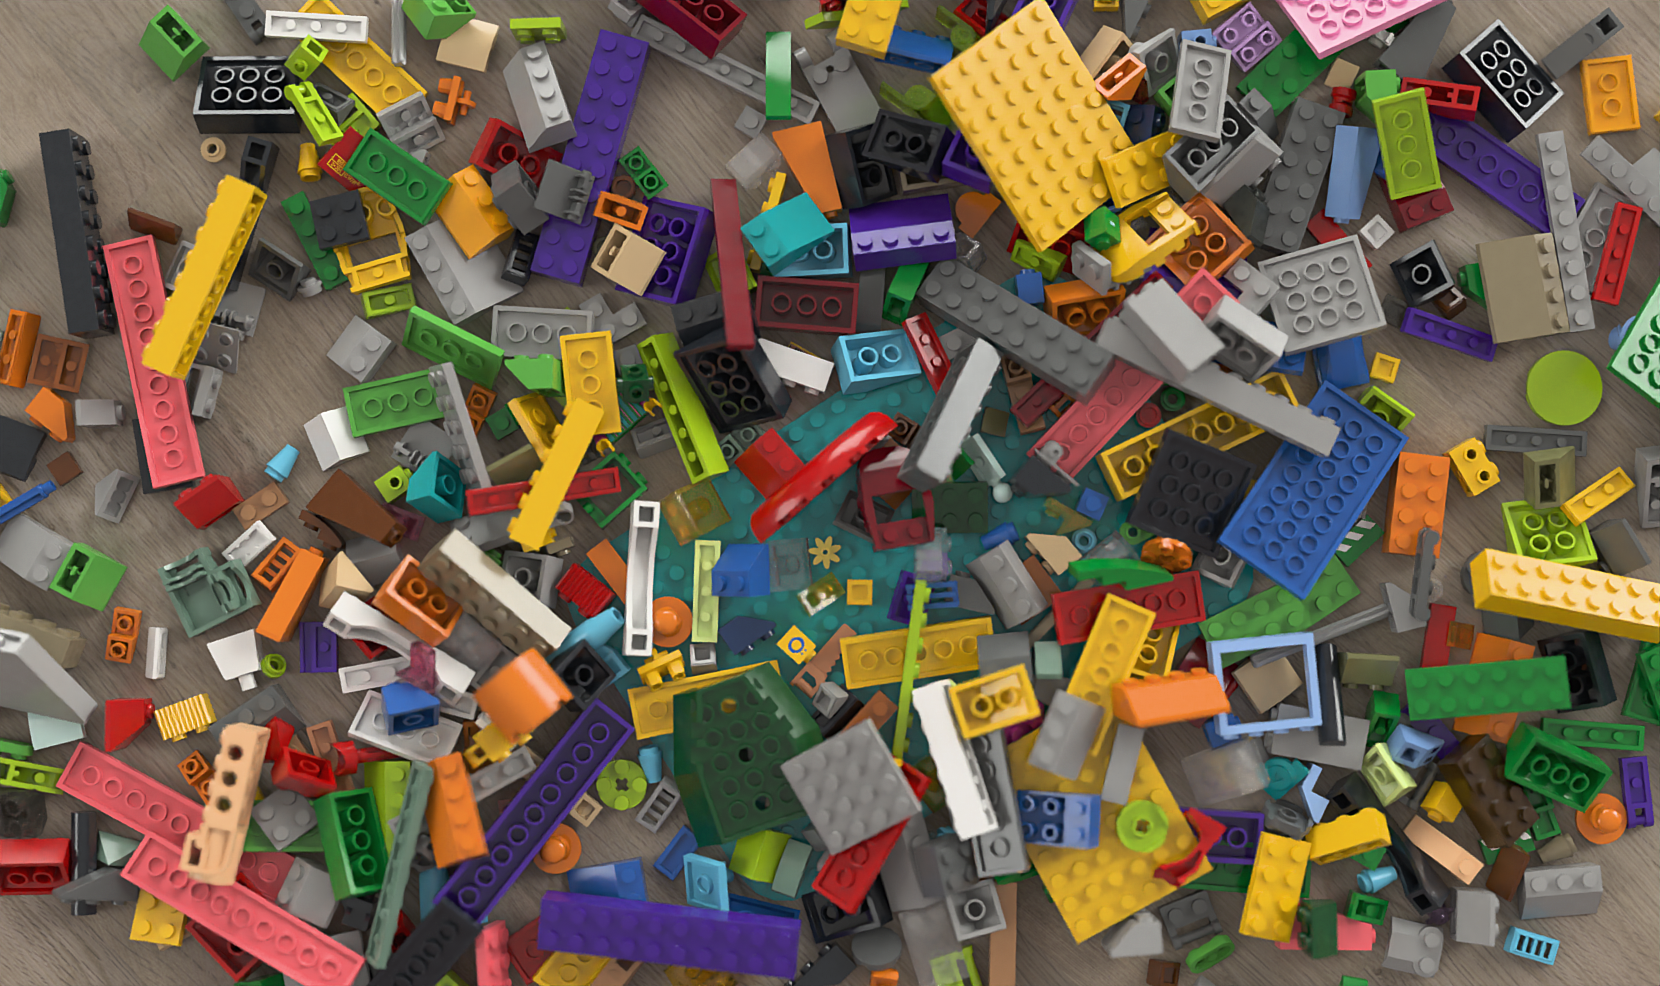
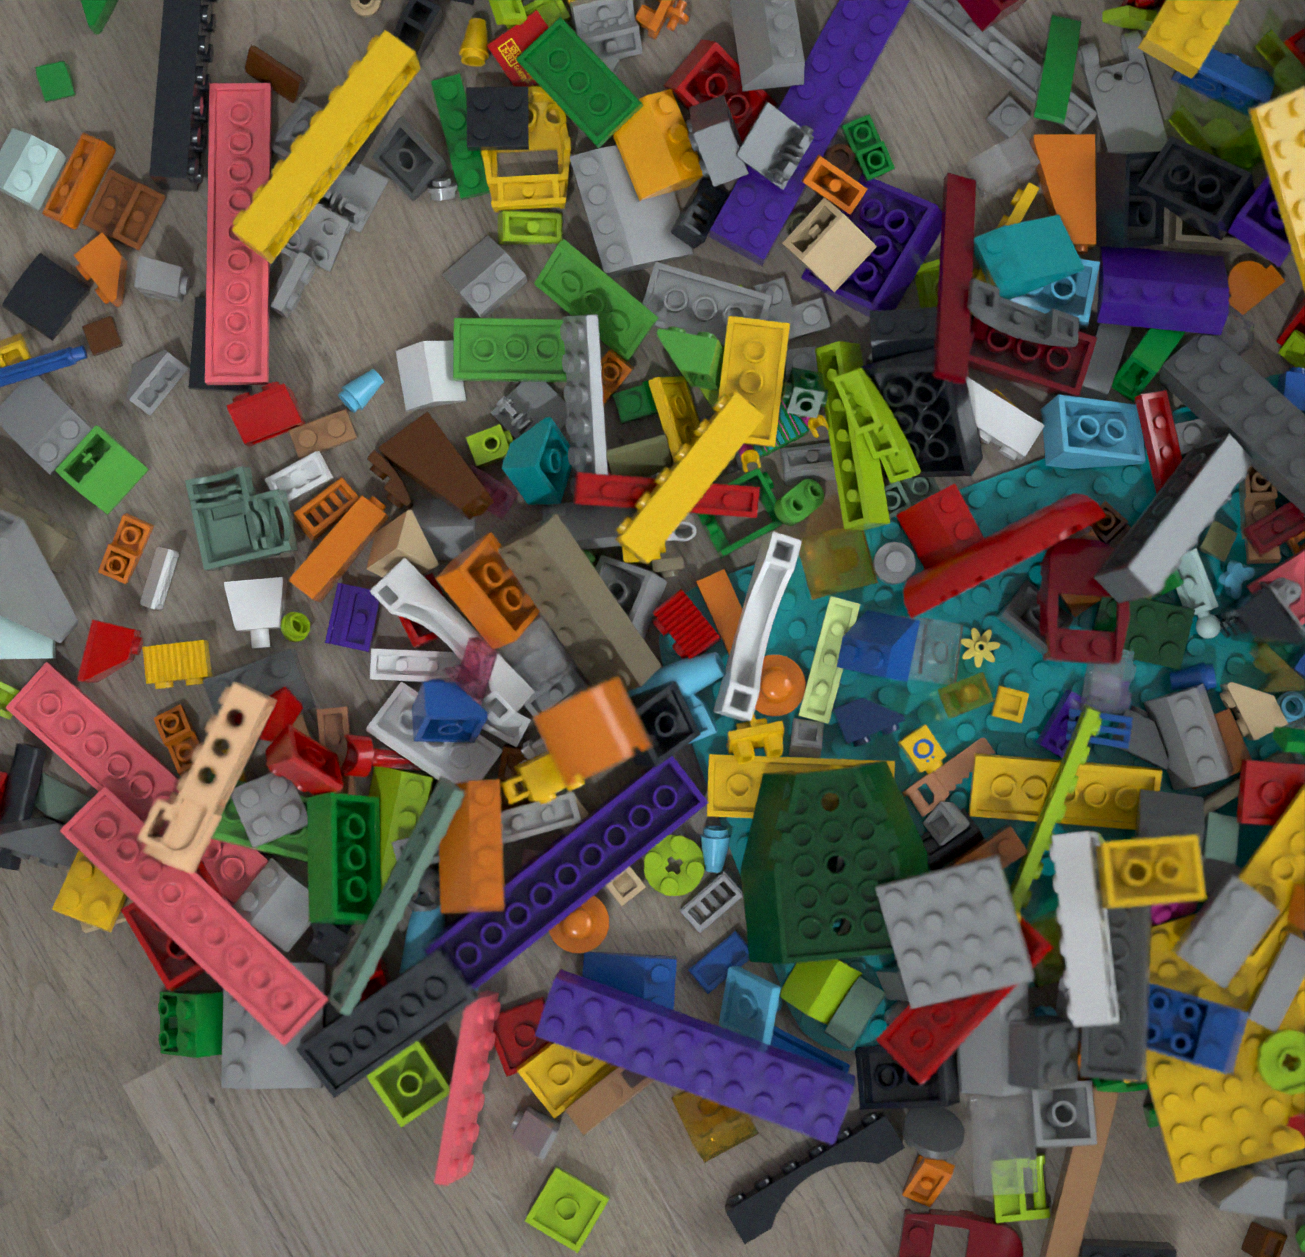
camera: 15 degrees right, 0 degrees up
(655, 469) = (799, 502): none -> bright green plate
(699, 394) = (877, 423): none -> lime slope
(740, 501) = (894, 563): none -> light grey piece
(792, 285) = (1021, 321): none -> dark grey slope
(1014, 448) = (1234, 576): none -> medium azure piece

